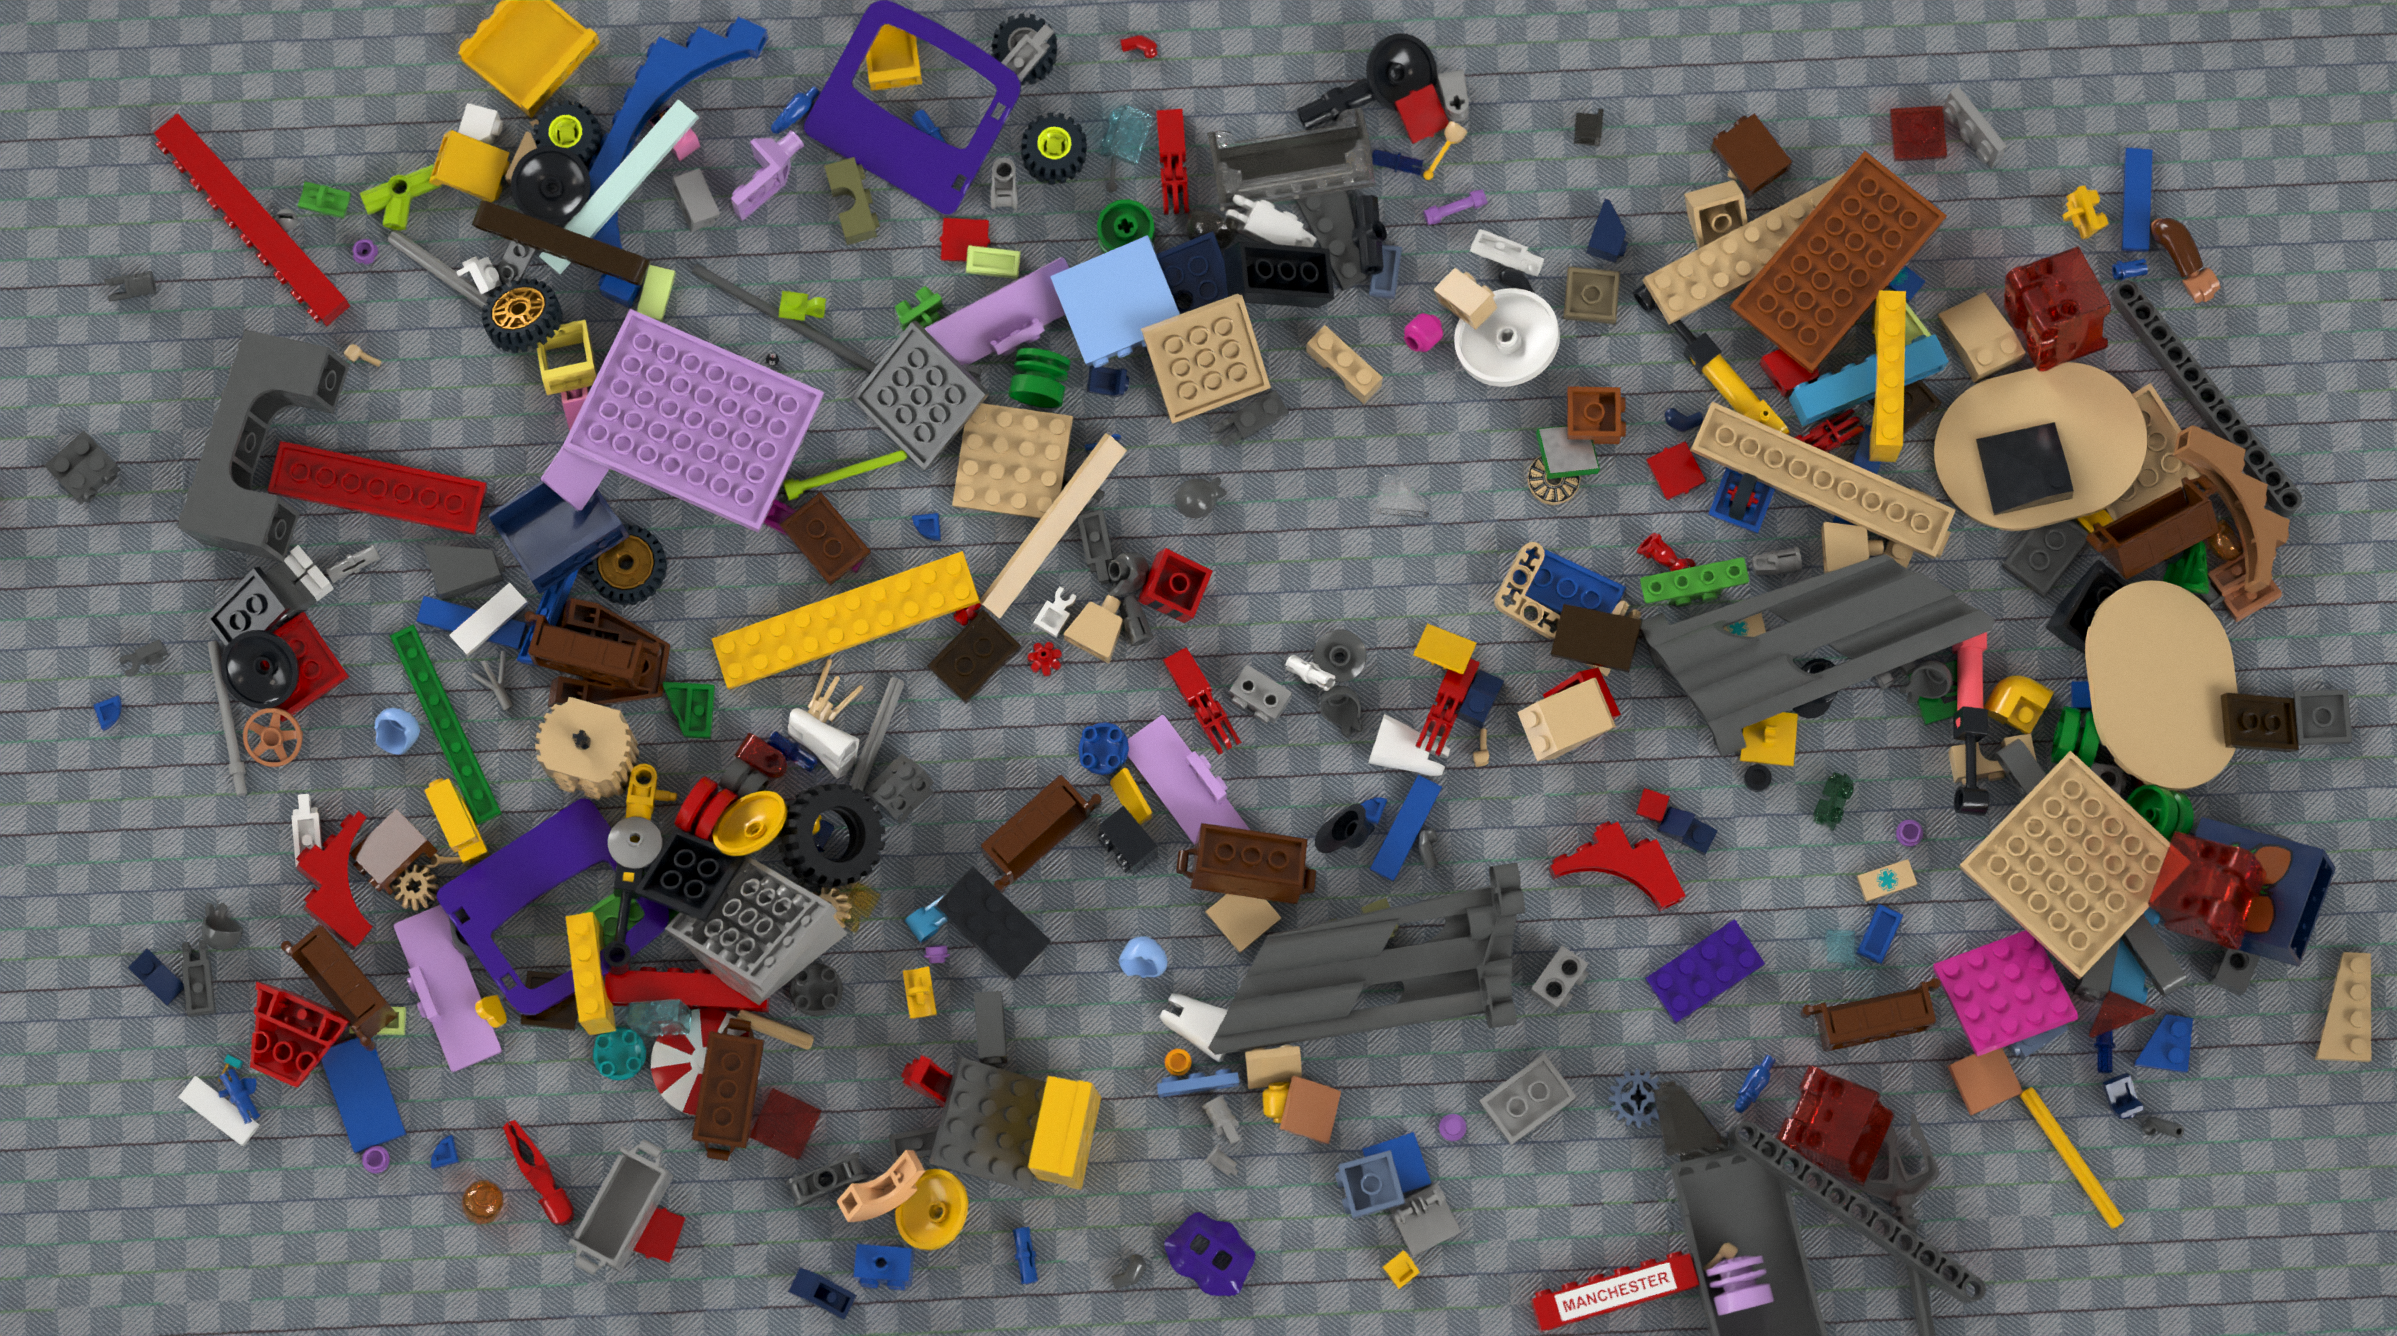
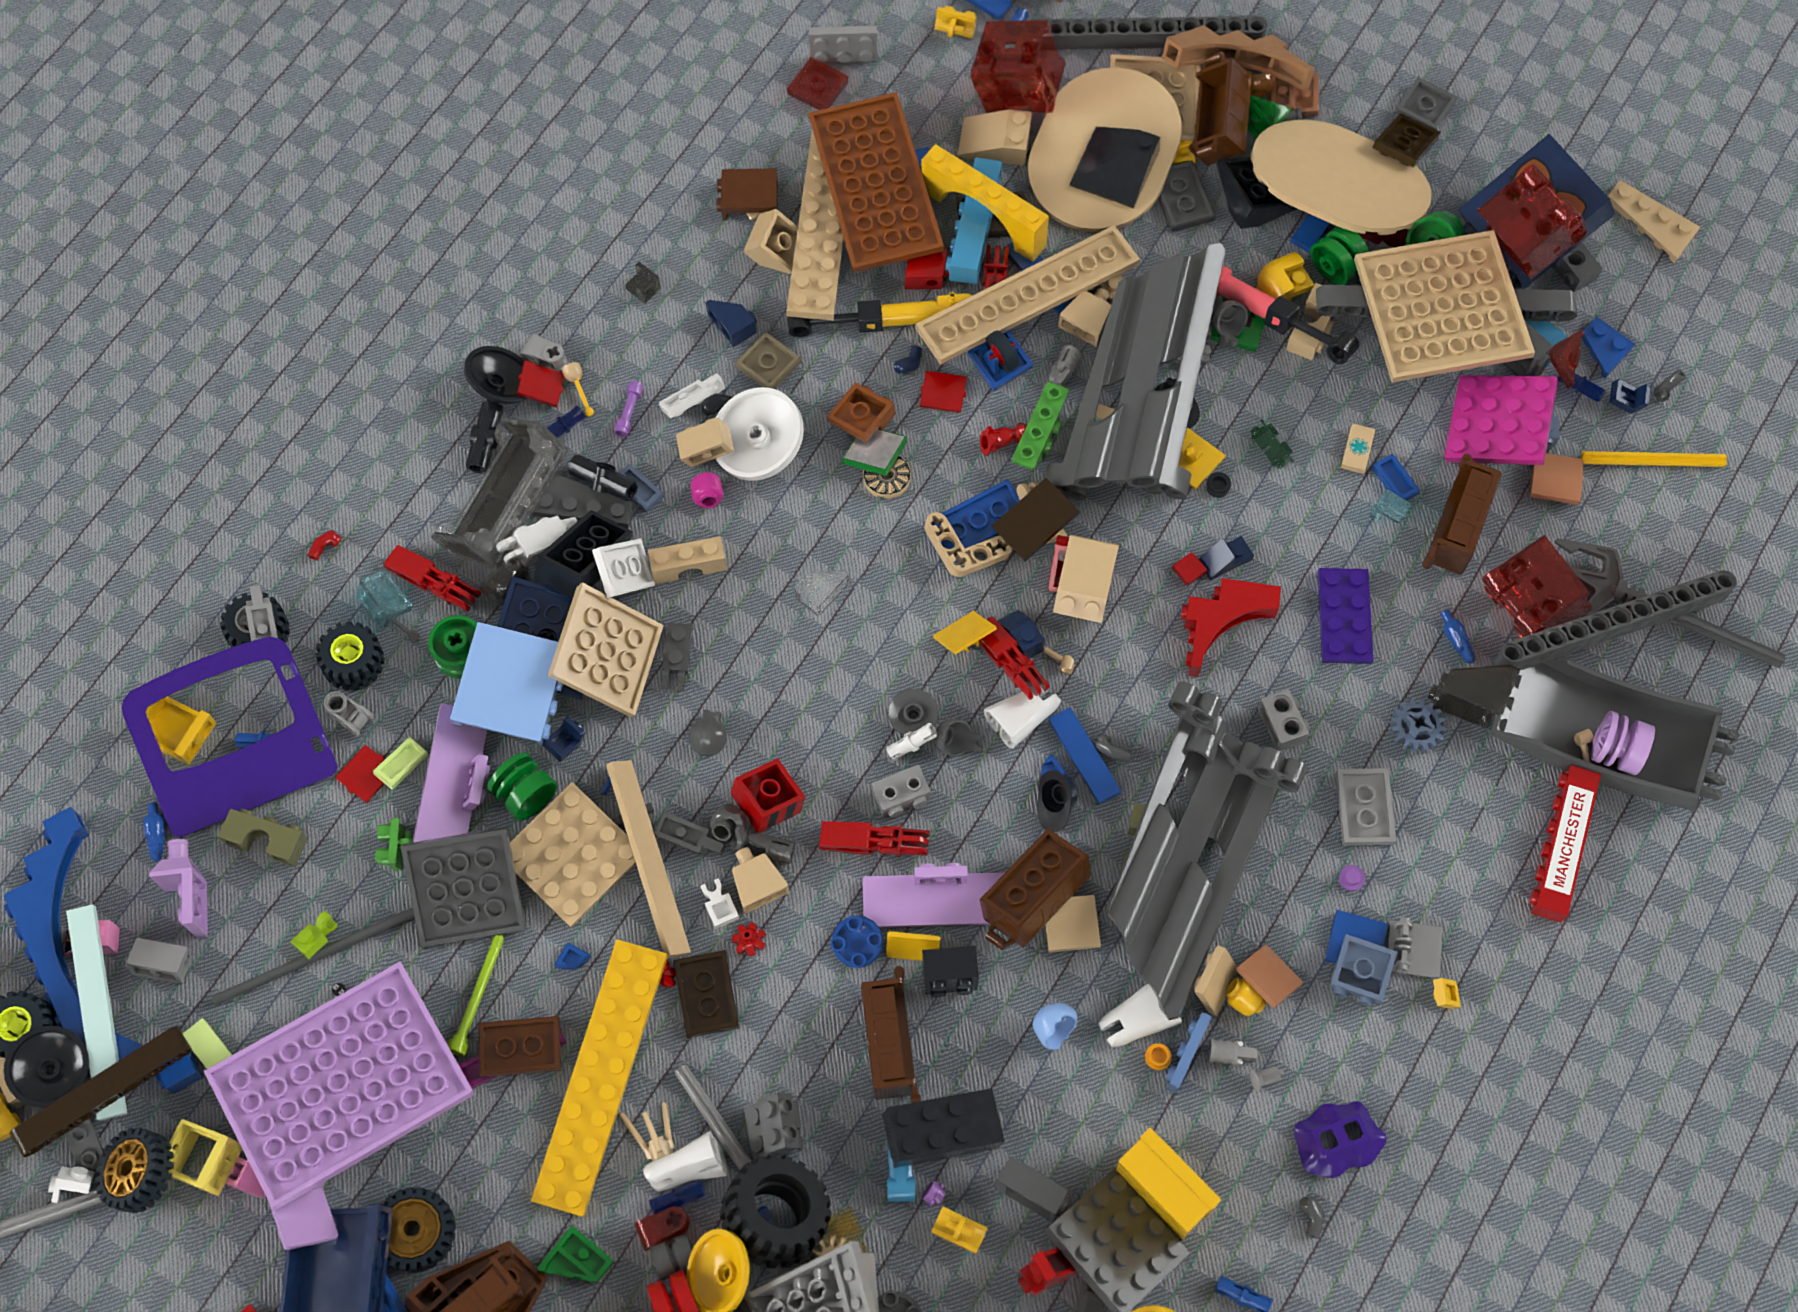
camera: 55 degrees left, 10 degrees down
(1290, 317) = (623, 567): none -> white tile
(1909, 833) = (1332, 410): medium lavender plate -> none

